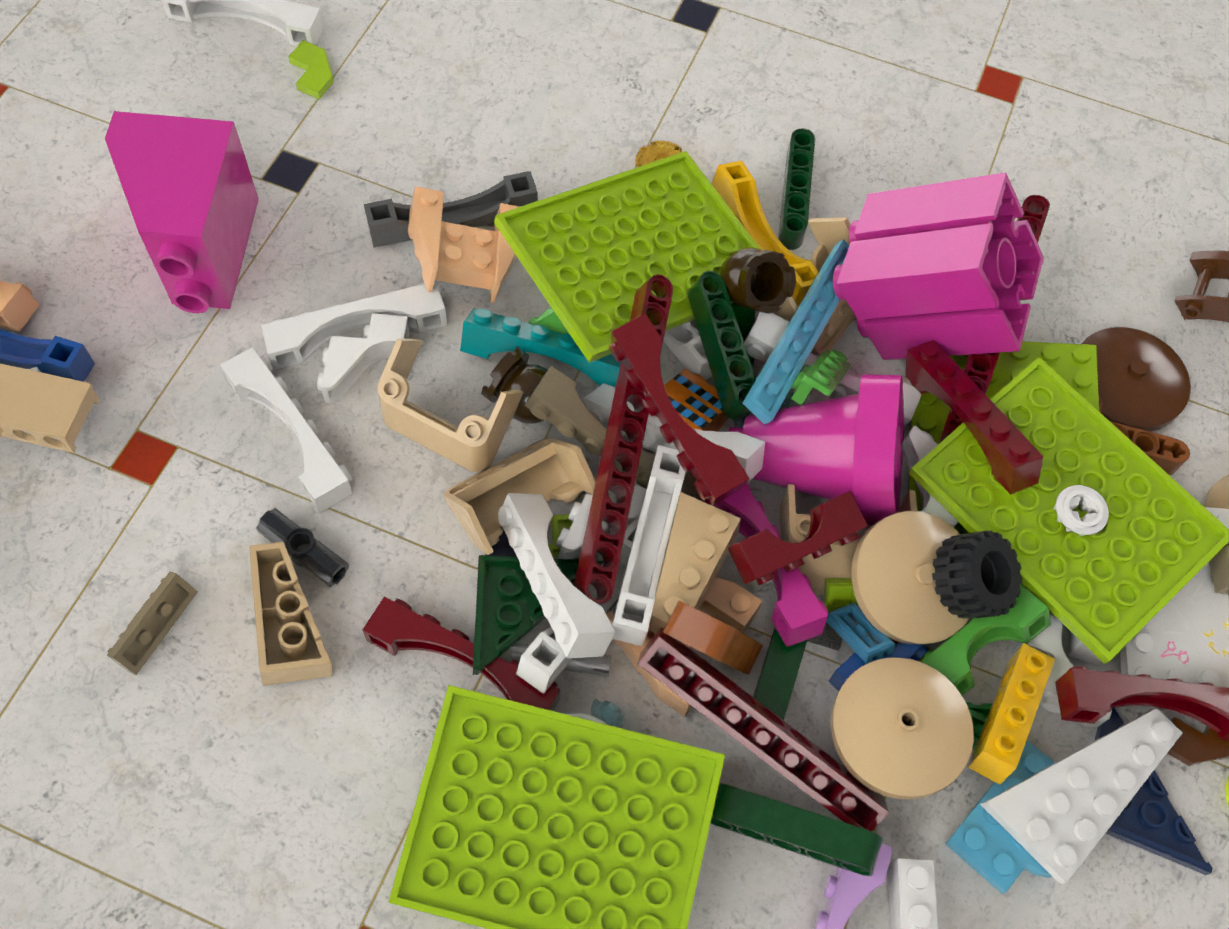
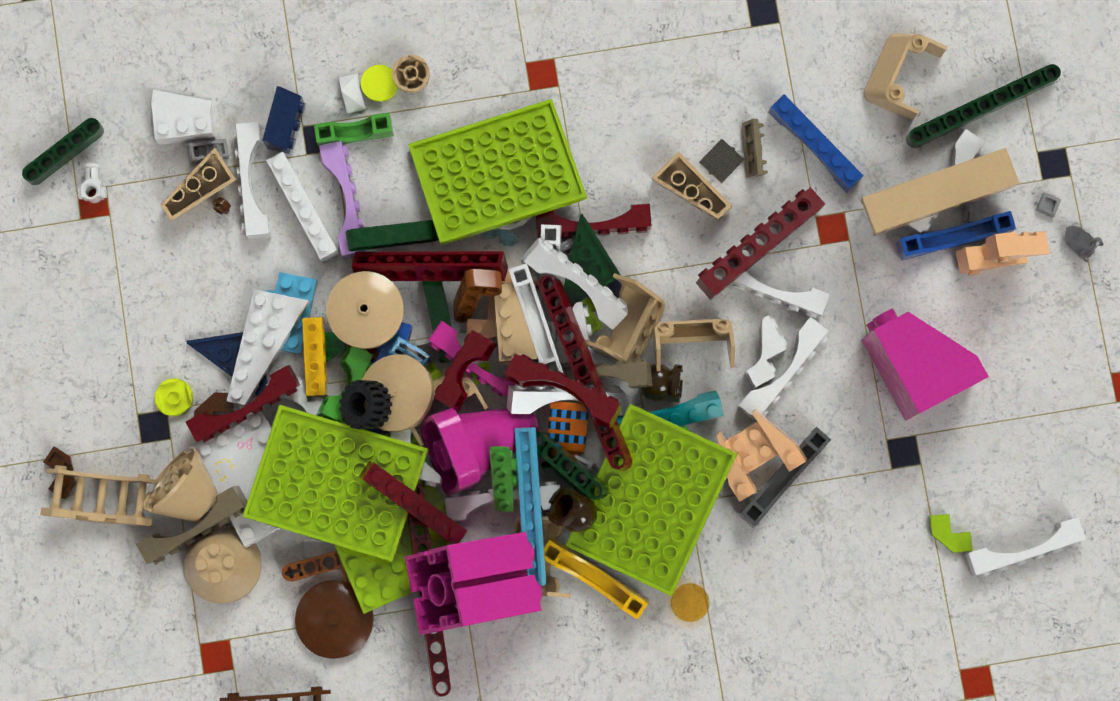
camera: 150 degrees right, 20 degrees up
(58, 622) = (840, 168): none -> blue arch
(197, 485) = (712, 286): none -> dark red brick
(211, 640) = (721, 161): none -> clear smoke piece
(316, 558) = (725, 230): black piece -> none
(797, 189) = (603, 640): dark green beam -> none
(1090, 502) = (320, 472): white gear -> none

